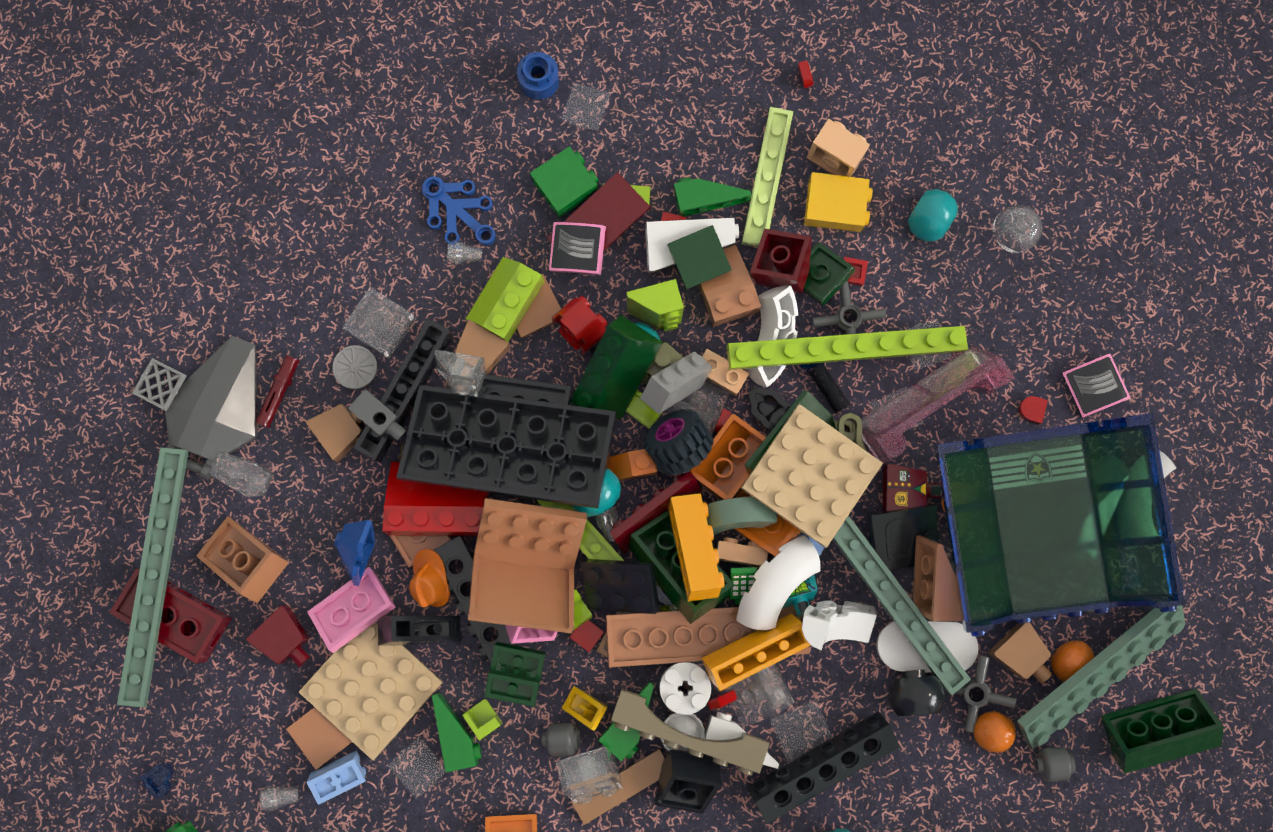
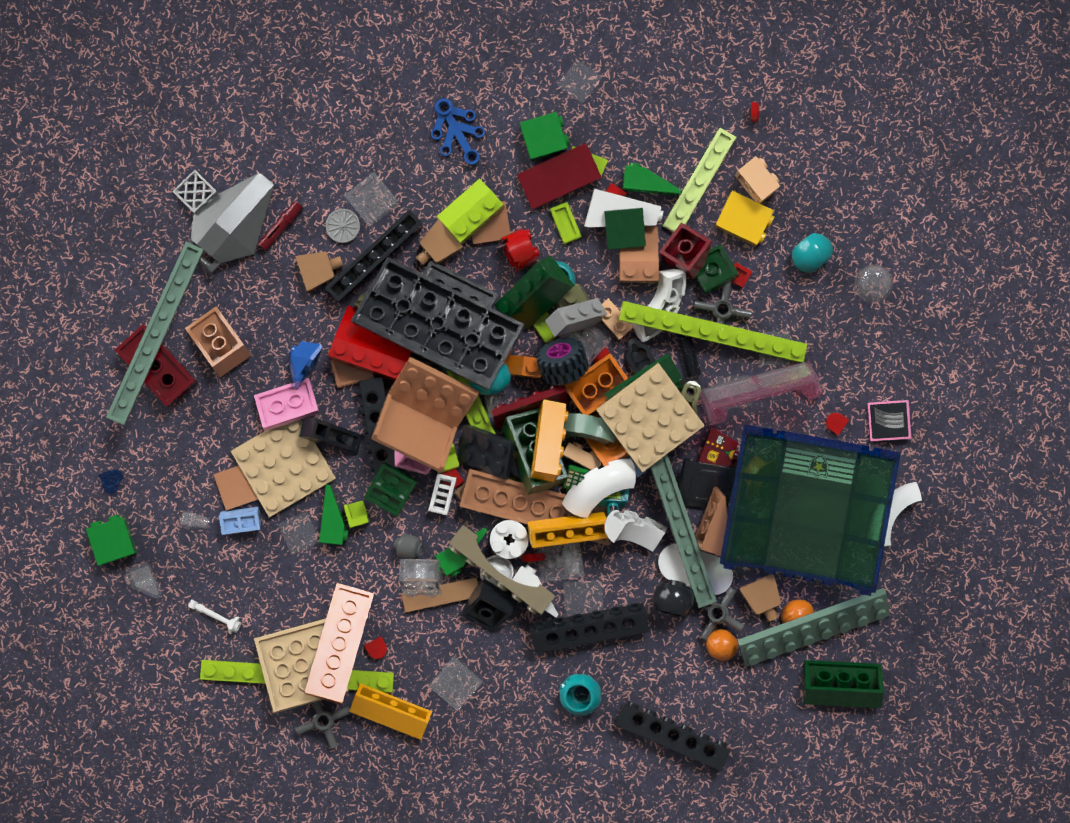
camera: 15 degrees right, 5 degrees up
(241, 474) = (236, 279): clear slope -> none
(281, 637) = (230, 408): dark red torso -> none
(368, 407) = (346, 262): dark grey torso -> none
(429, 581) = (350, 401): orange piece -> none
(461, 372) = (421, 257): clear slope -> none
(463, 253) = (450, 166): clear cone -> none
(538, 63) = (556, 37): blue piece -> none
(577, 248) = (536, 191): slope -> none
(582, 679) = (449, 495): none -> white slope
(584, 707) = (432, 530): yellow slope -> none
(622, 274) = (565, 223): none -> lime tile
(657, 305) = (581, 255): lime slope -> none
(1054, 764) = (756, 681): dark grey head -> none

